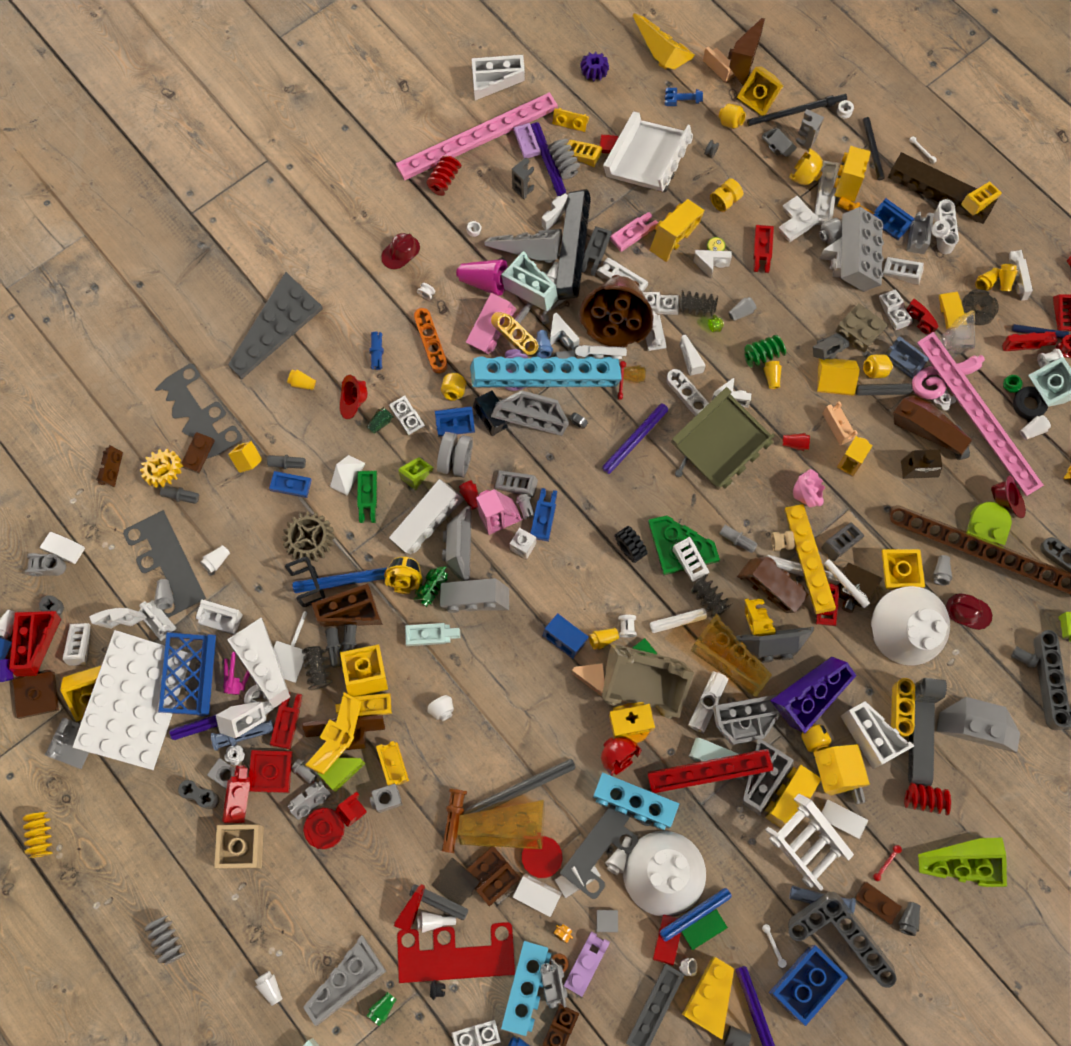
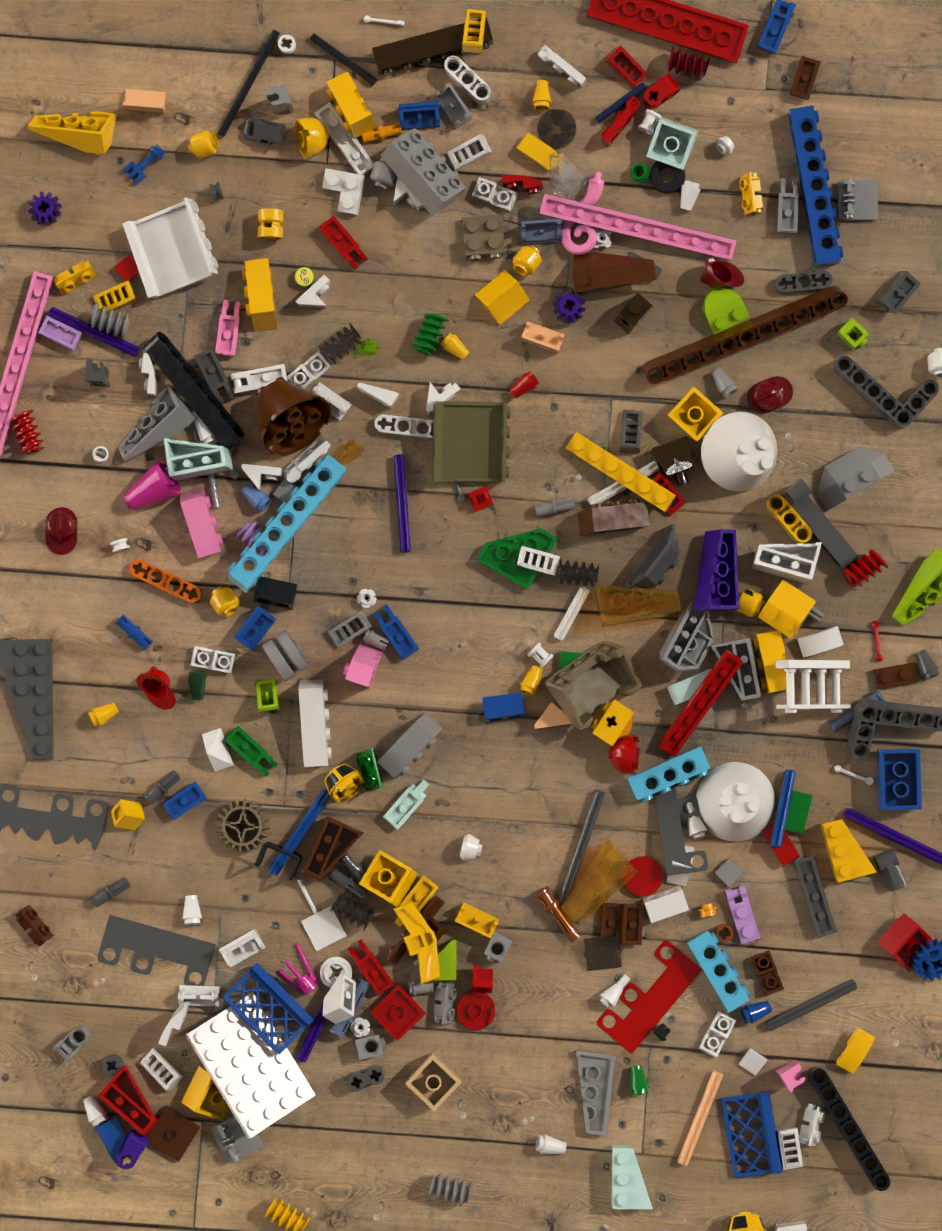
camera: 50 degrees left, 15 degrees up
(62, 547) = (70, 1017): white slope -> none
(161, 468) = (83, 890): yellow gear -> none
(163, 595) = (185, 974): light grey cone -> none
(197, 452) = (87, 848): reddish brown plate -> none
(236, 796) = (395, 1052): hinge -> none
(258, 656) = (305, 946): white wedge -> none
(408, 915) = (592, 1004): red slope -> none
(442, 903) = (604, 976): dark grey axle -> none
(459, 544) = (358, 719): light grey wedge -> none
(469, 492) = (326, 672): red cone -> none
(507, 329) = (221, 515): yellow beam -> none
(523, 543) = (404, 670): white brick -> none
(533, 412) = (307, 564): light grey wedge -> none
(548, 479) = (361, 598): none -> white plate
(556, 992) = (728, 945): light grey hinge -> none
(578, 420) = (346, 533): dark grey tile -> none
(620, 395) = (335, 455): red hinge -> none
(631, 544) = (483, 592): black tyre -> none
(688, 967) = (807, 847): white hinge -> none
(691, 485) = (480, 498): none -> red tile
(702, 712) = (645, 640): white piece -> none
(742, 309) = (378, 313): light grey cone -> none
(744, 52) = (157, 75): reddish brown wedge -> none
(758, 618) = (628, 556): yellow hinge -> none
(760, 90) = (203, 96): yellow slope -> none
(782, 540) = (587, 481): tan wheel -> none
(809, 489) = (570, 416): bright pink hair -> none
(828, 347) = (475, 279): dark grey piece -> none
(846, 583) = (665, 467): white bar -> none
(854, 455) = (579, 356): yellow brick -> none
(882, 427) = (561, 303): none -> dark purple gear
(883, 389) = (548, 274): dark grey axle -> none
(943, 232) = (473, 92): white plate -> none
(1007, 276) = (553, 78): yellow cone -> none
(1025, 657) = (839, 392): dark grey pin -> none

